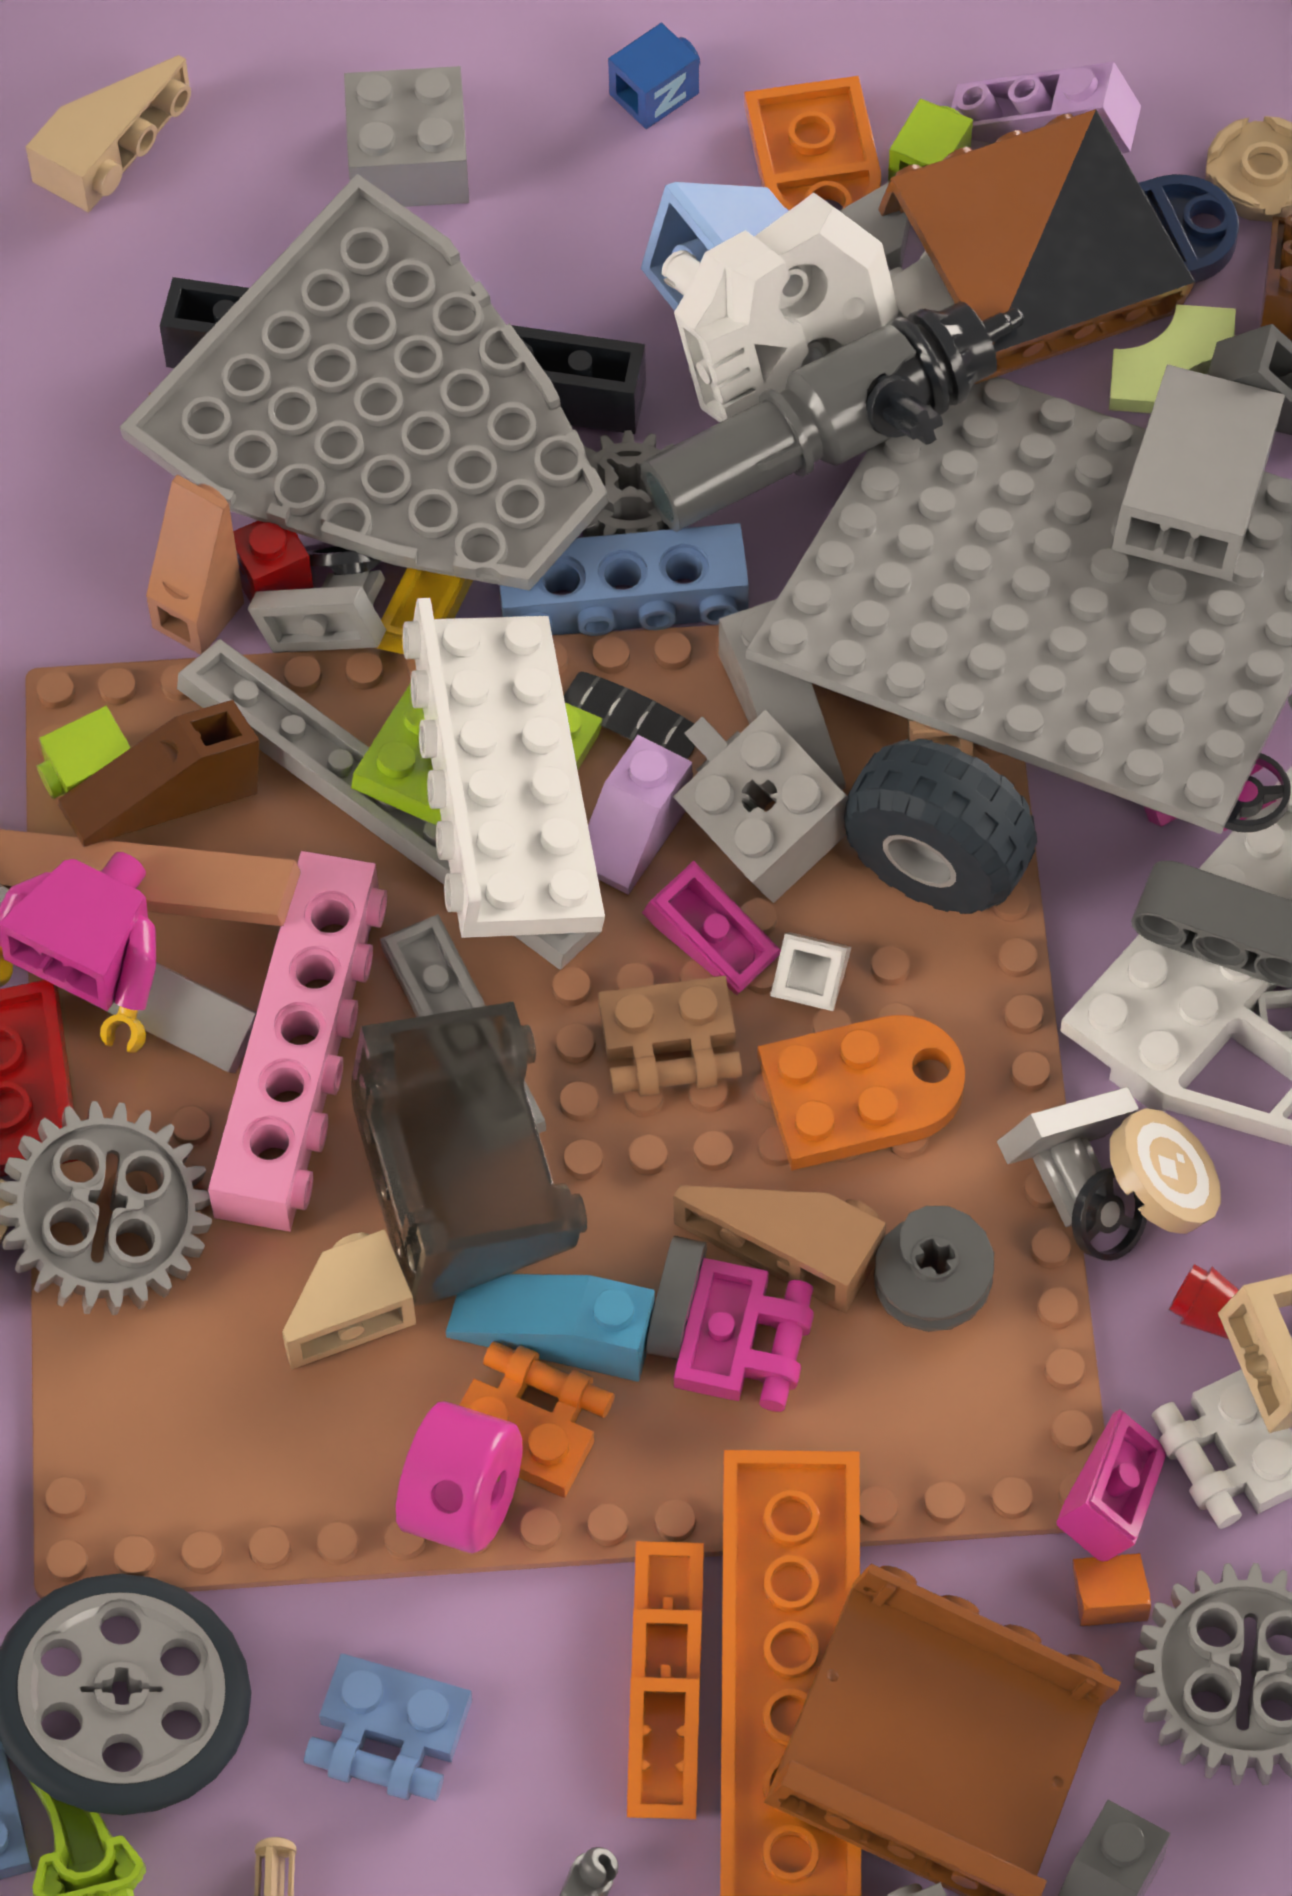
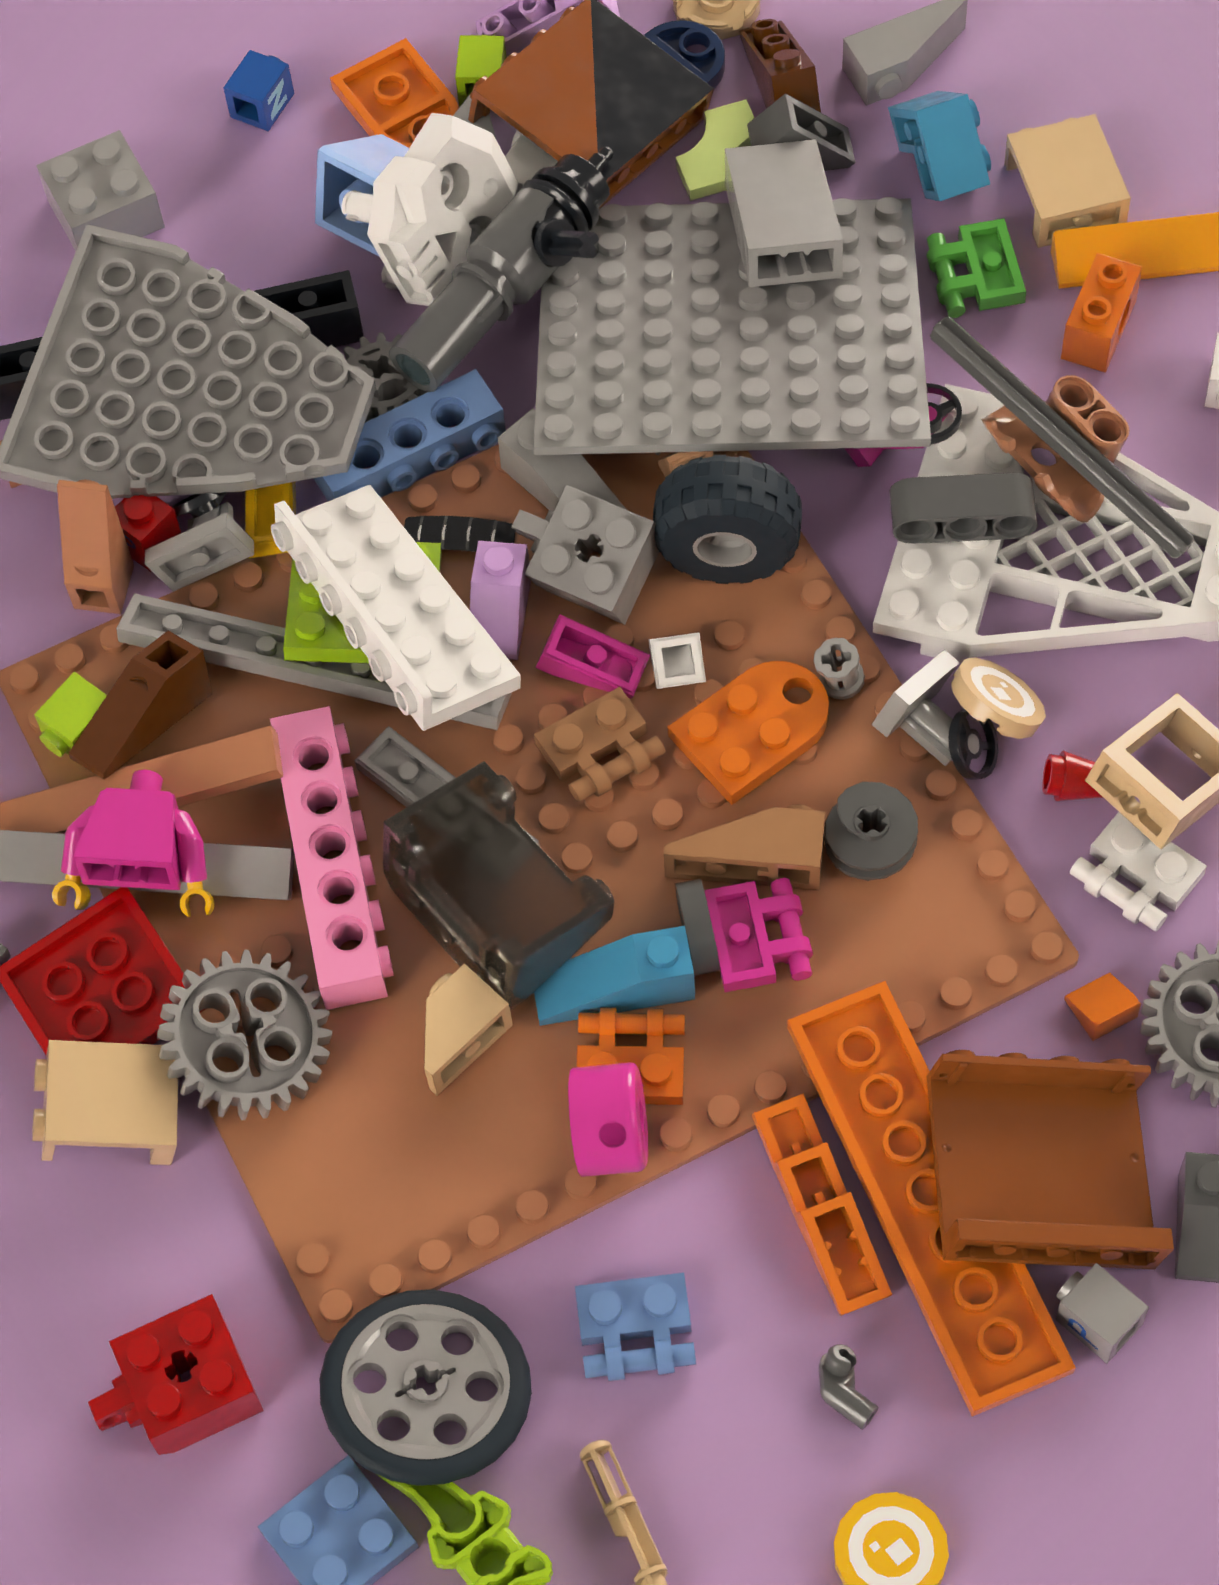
camera: 20 degrees left, 0 degrees up
(996, 1060) = (851, 673): none -> light grey bush
(1113, 1489) = (1072, 935): dark pink slope -> none

